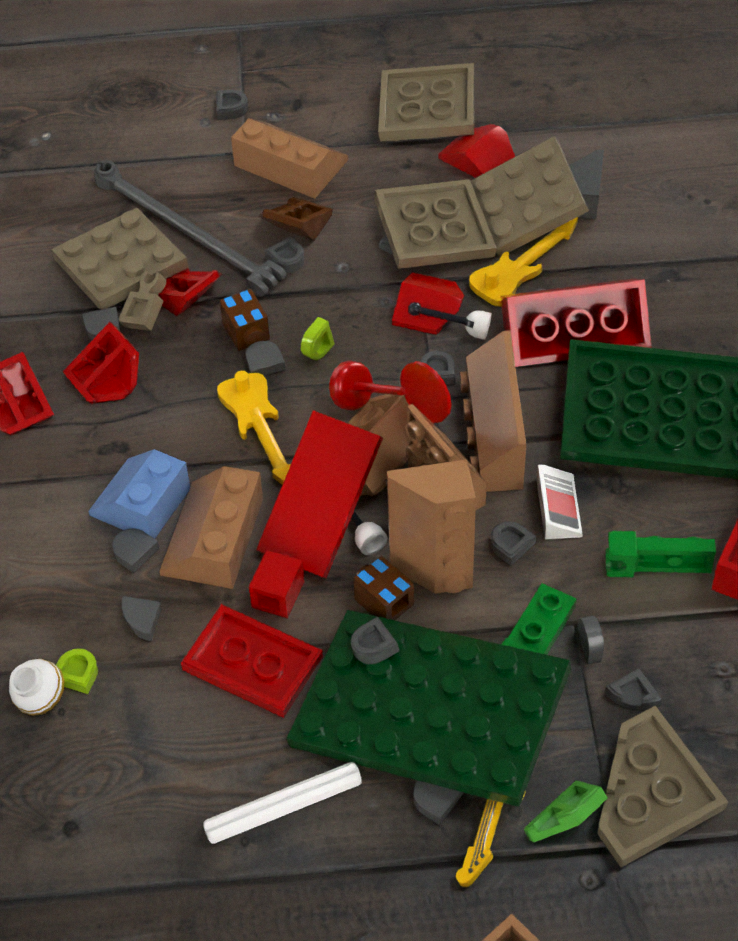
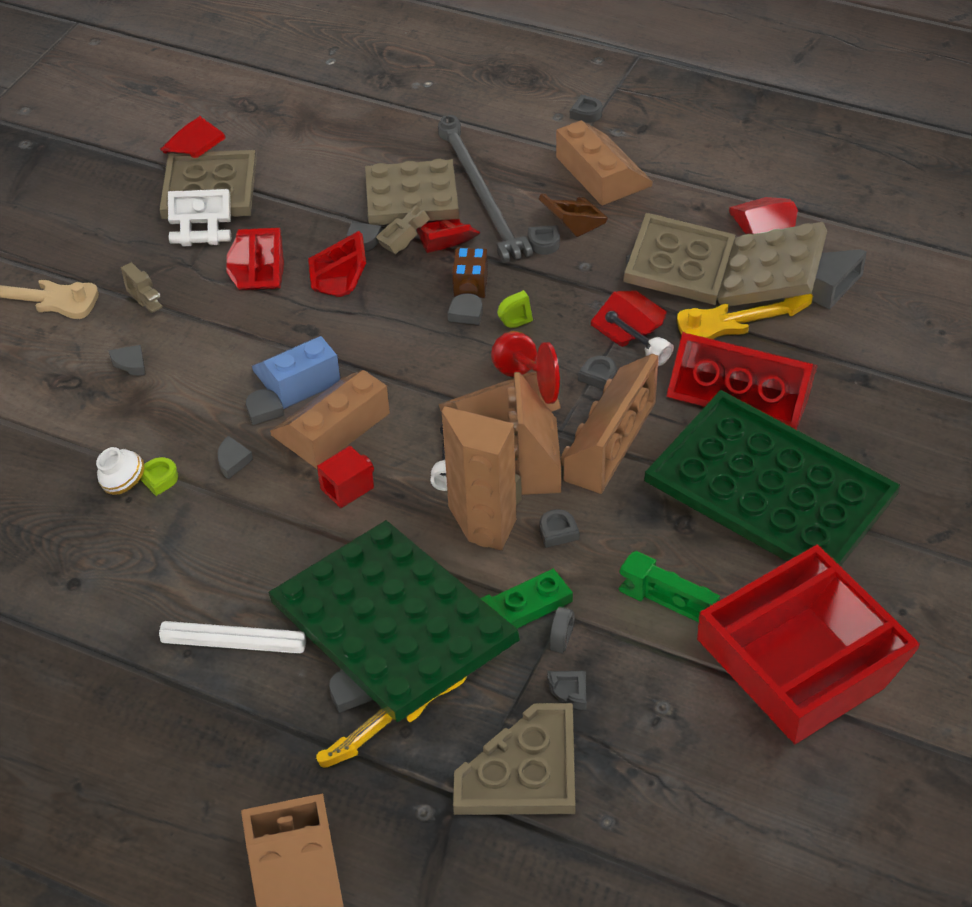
camera: 30 degrees right, 5 degrees down
(248, 400) = (430, 335): yellow piece -> none
(252, 660) = (289, 525): red tile -> none
(320, 492) = (414, 422): red tile -> none
(373, 642) = (379, 548): dark grey tile -> none
(383, 589) = (423, 517): reddish brown brick -> none
(427, 102) = (746, 162): dark tan plate -> none
(558, 503) = (618, 514): slope -> none
(566, 810) = (438, 748): bright green tile -> none

